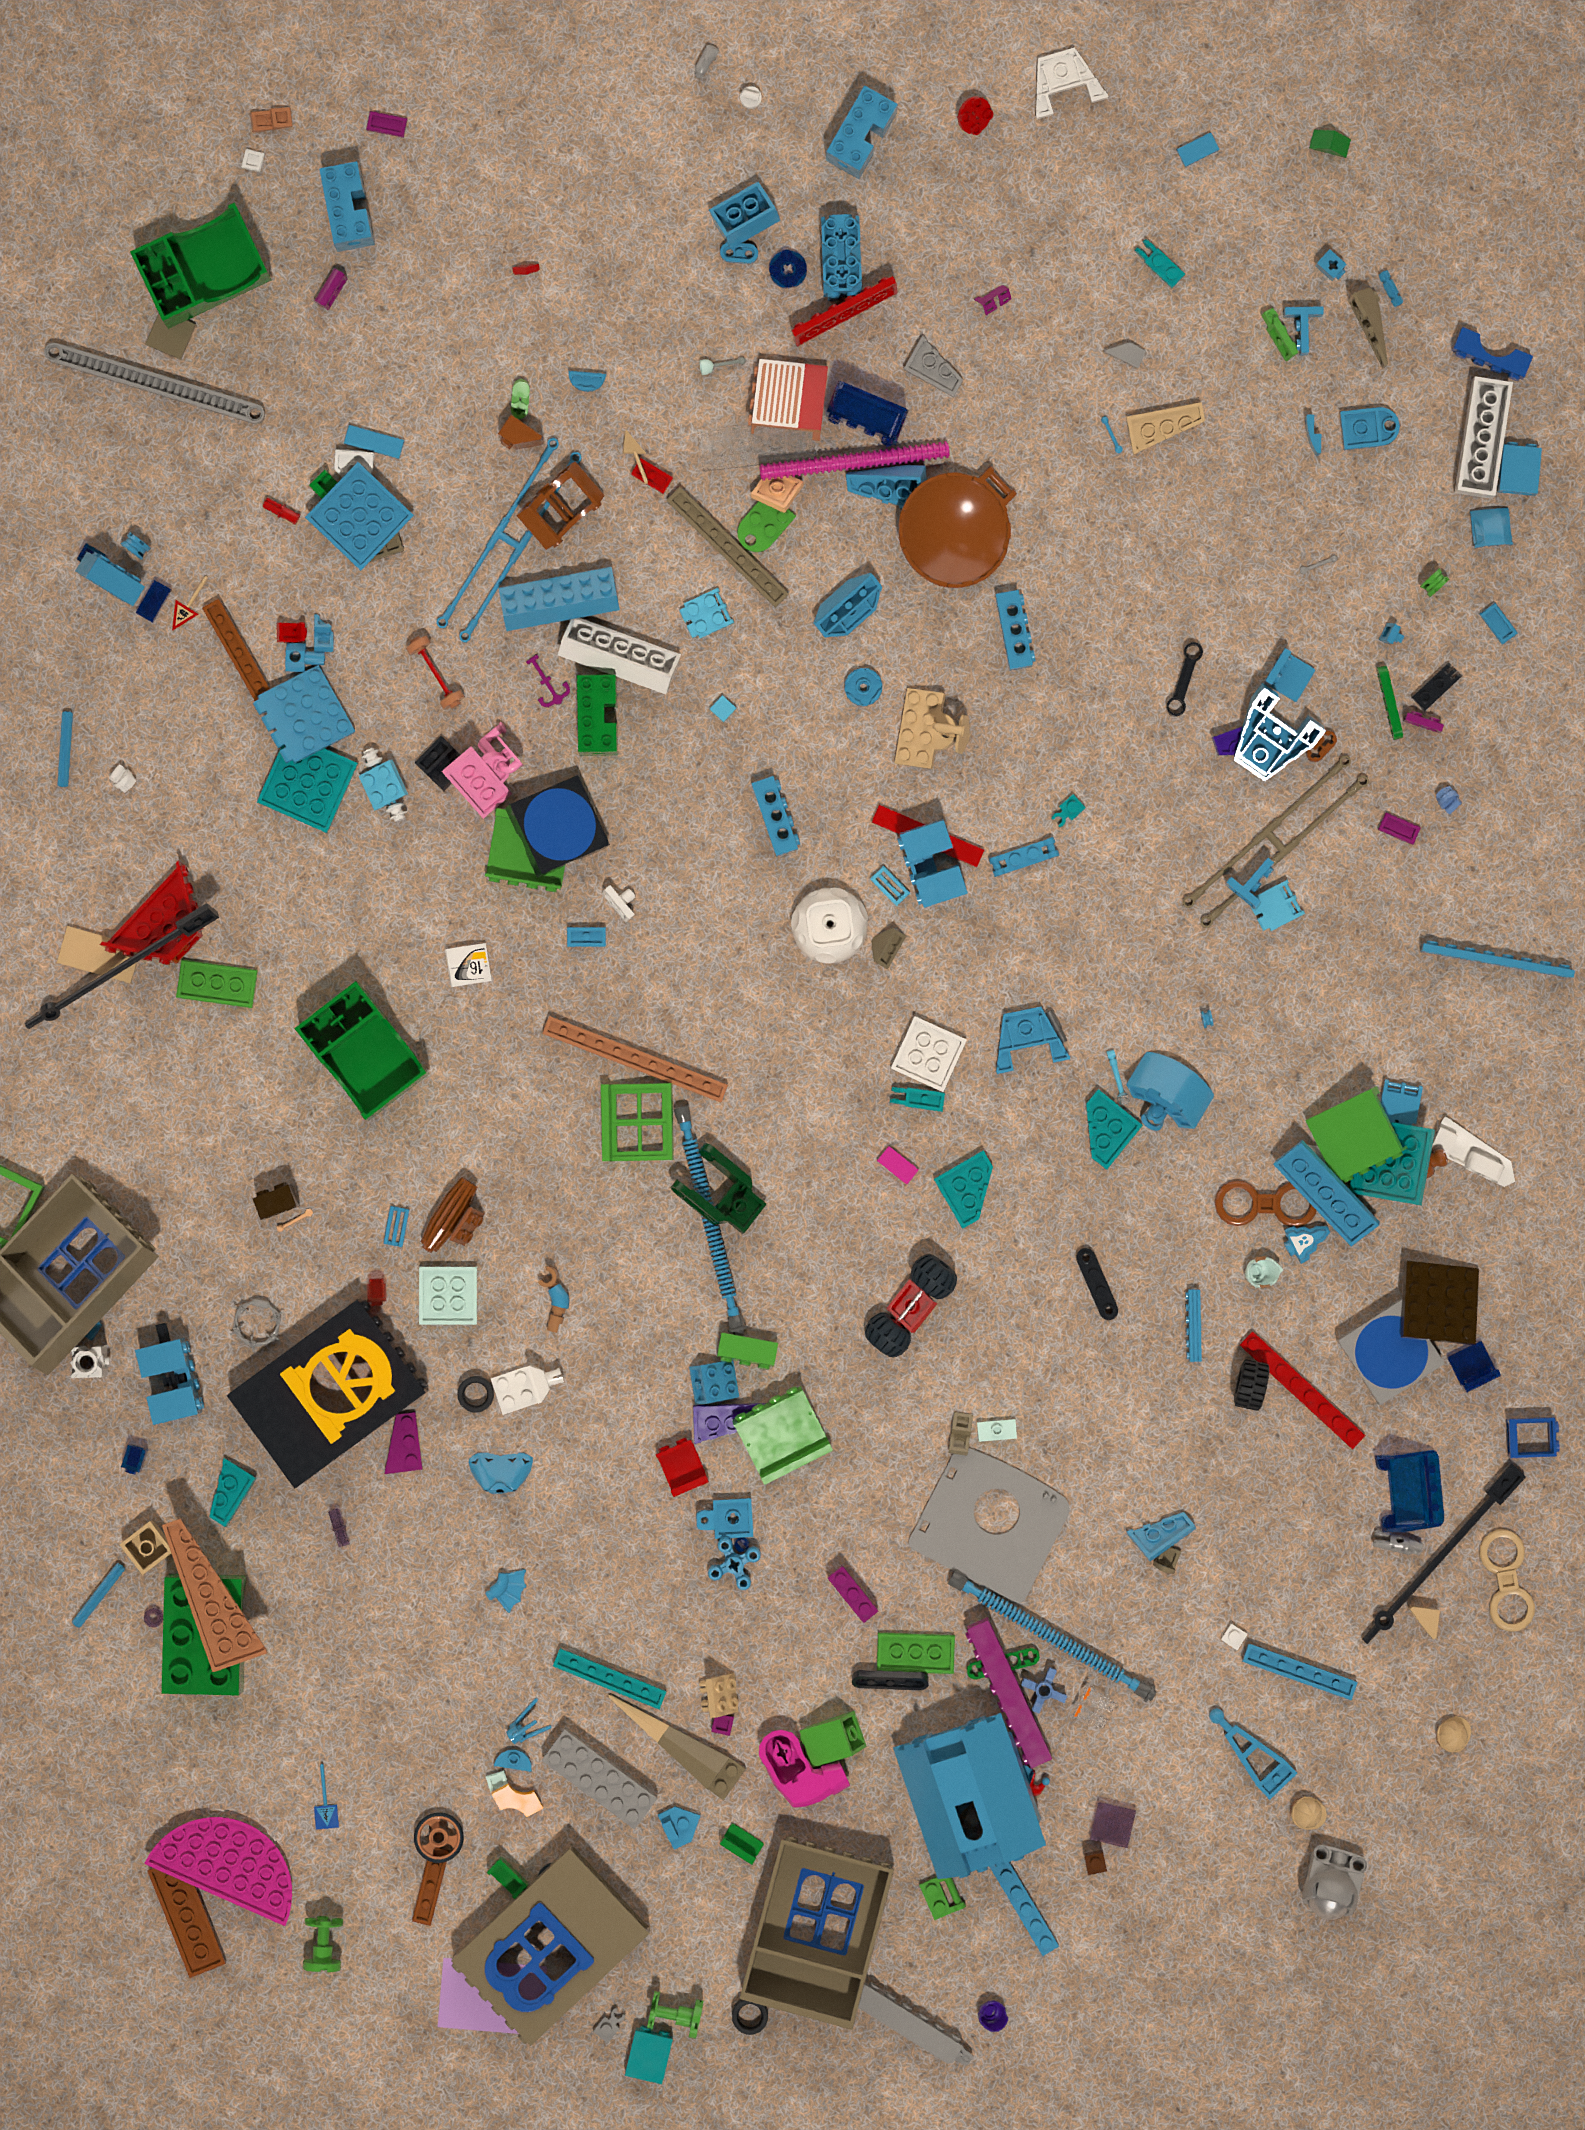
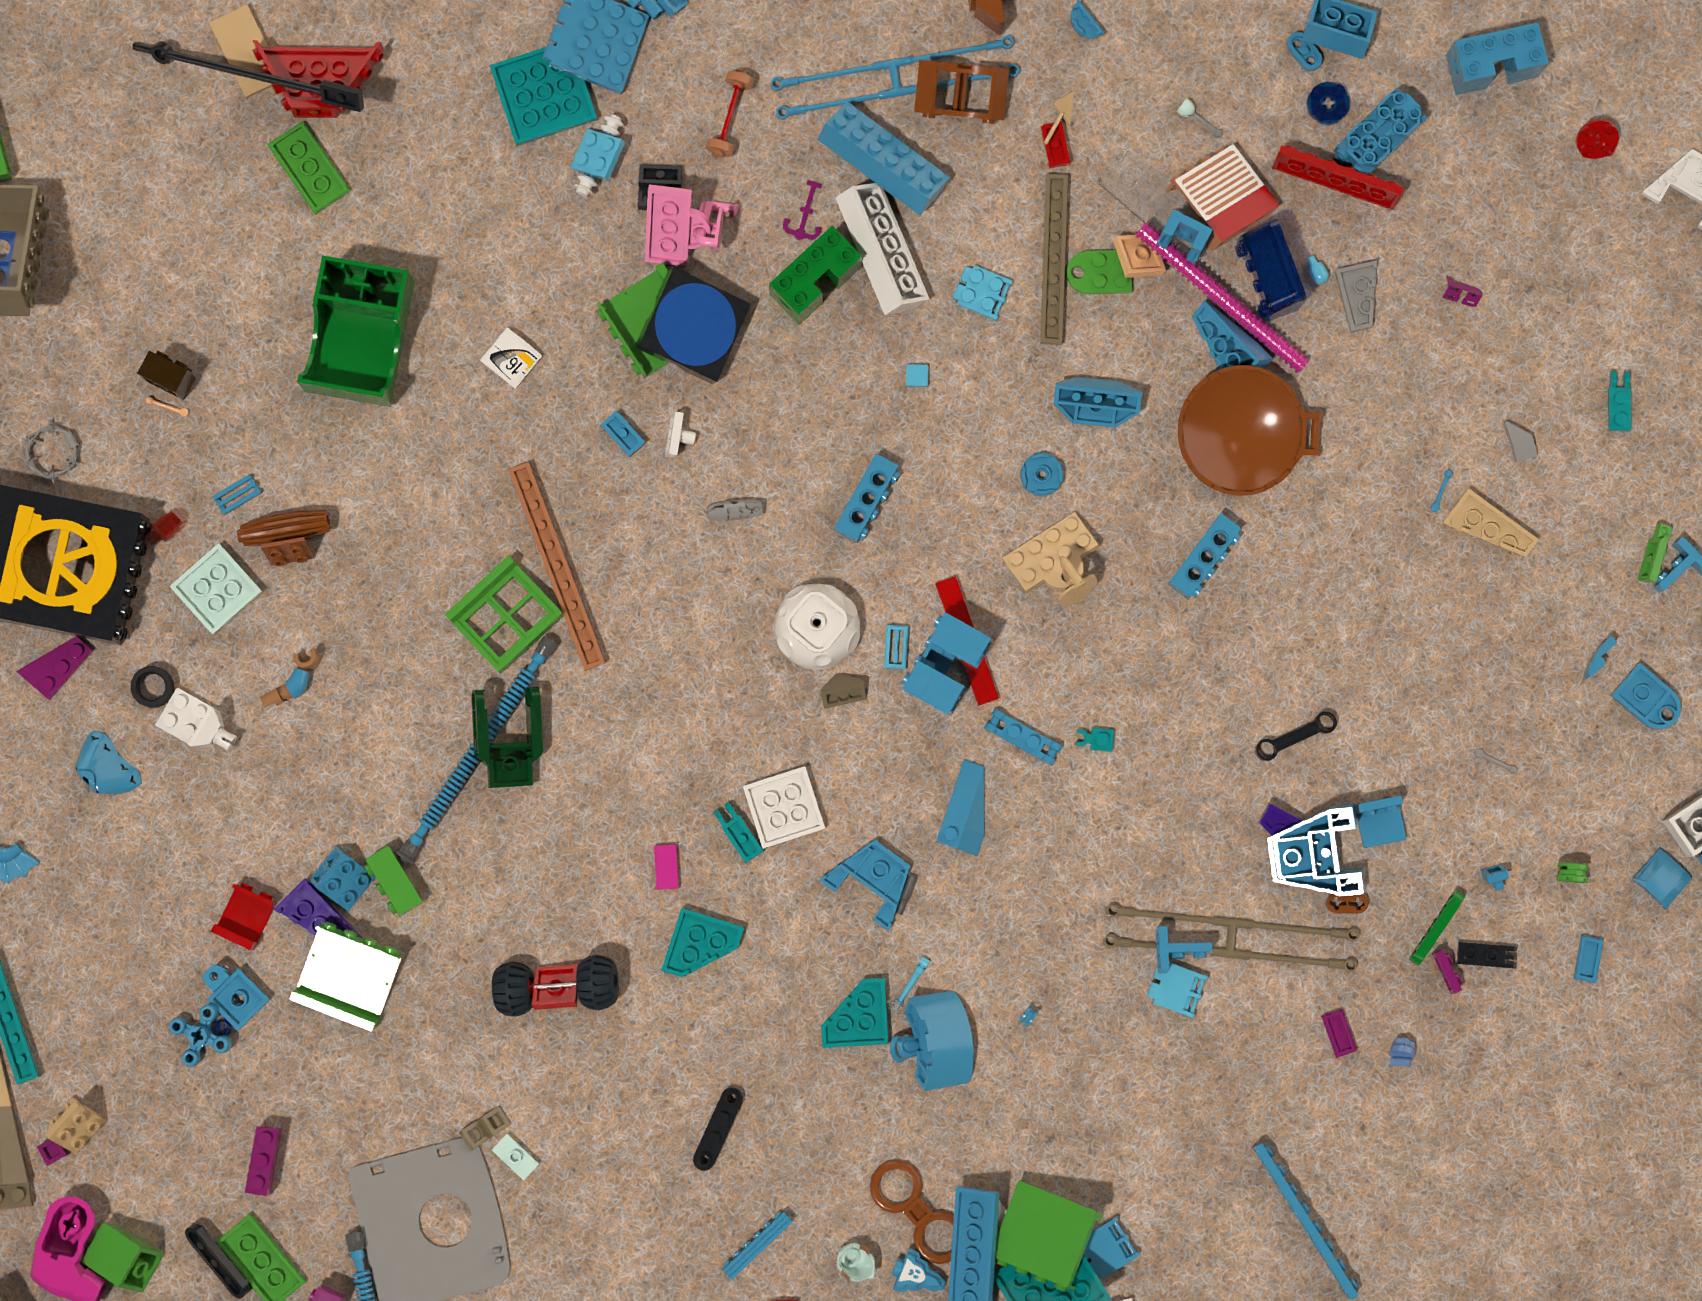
camera: 45 degrees right, 5 degrees down
(704, 909) = (734, 510): none -> light grey hinge
(792, 445) = (1188, 230): none -> dark azure panel
(893, 381) = (1317, 271): none -> medium azure cylinder
(1042, 943) = (964, 816): none -> dark azure wedge

